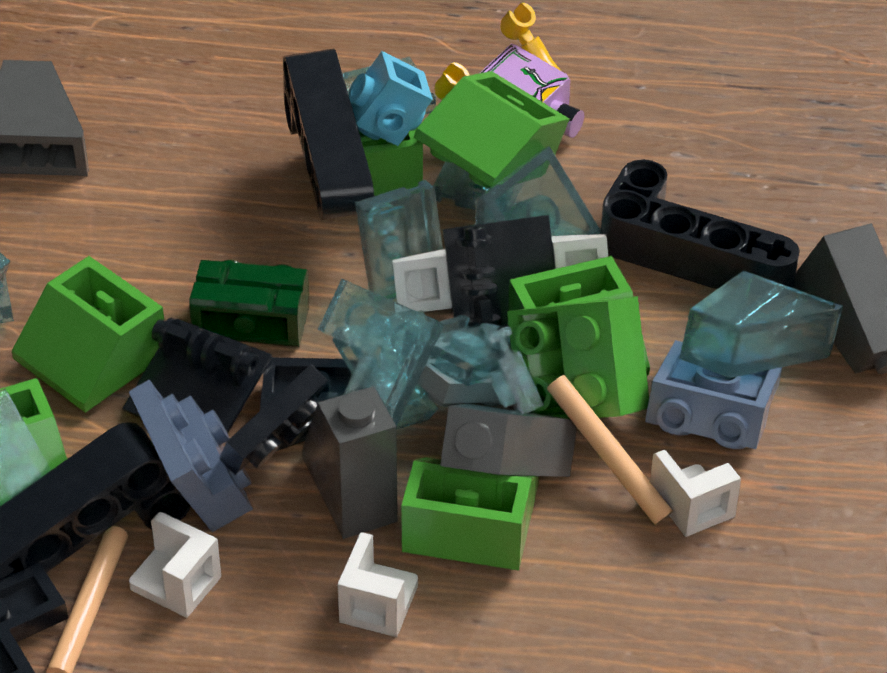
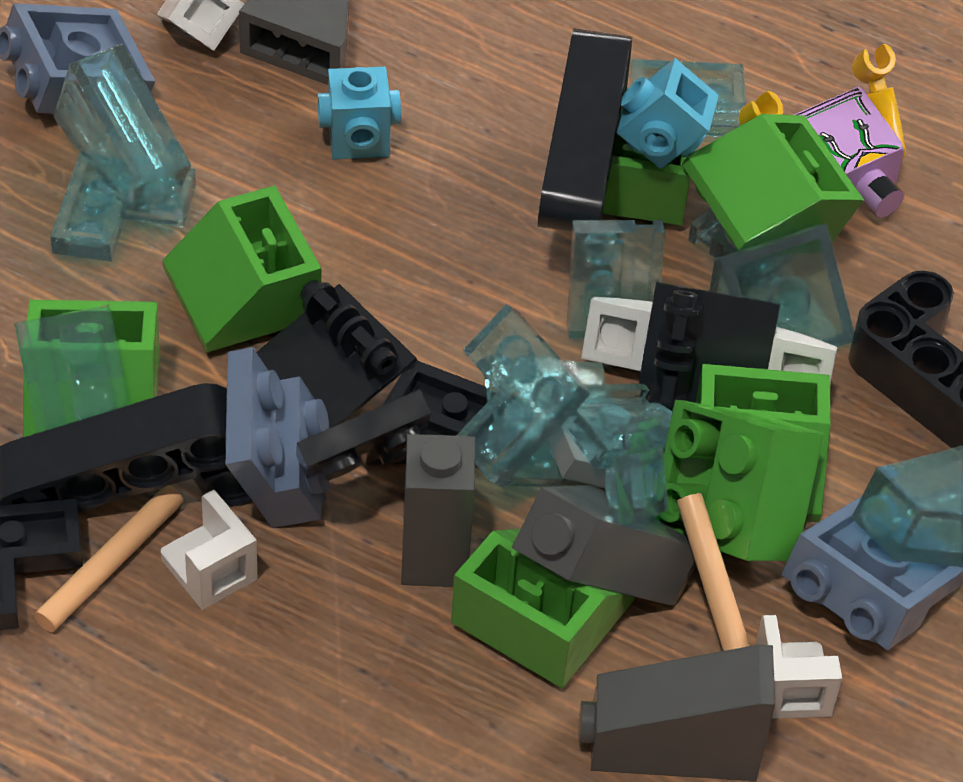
camera: 20 degrees right, 5 degrees up
(113, 177) = (359, 112): none -> medium azure brick
(251, 301) = (428, 290): dark green brick -> none
(374, 594) = (397, 654): white panel -> none
(635, 551) = (683, 716): none -> dark grey slope

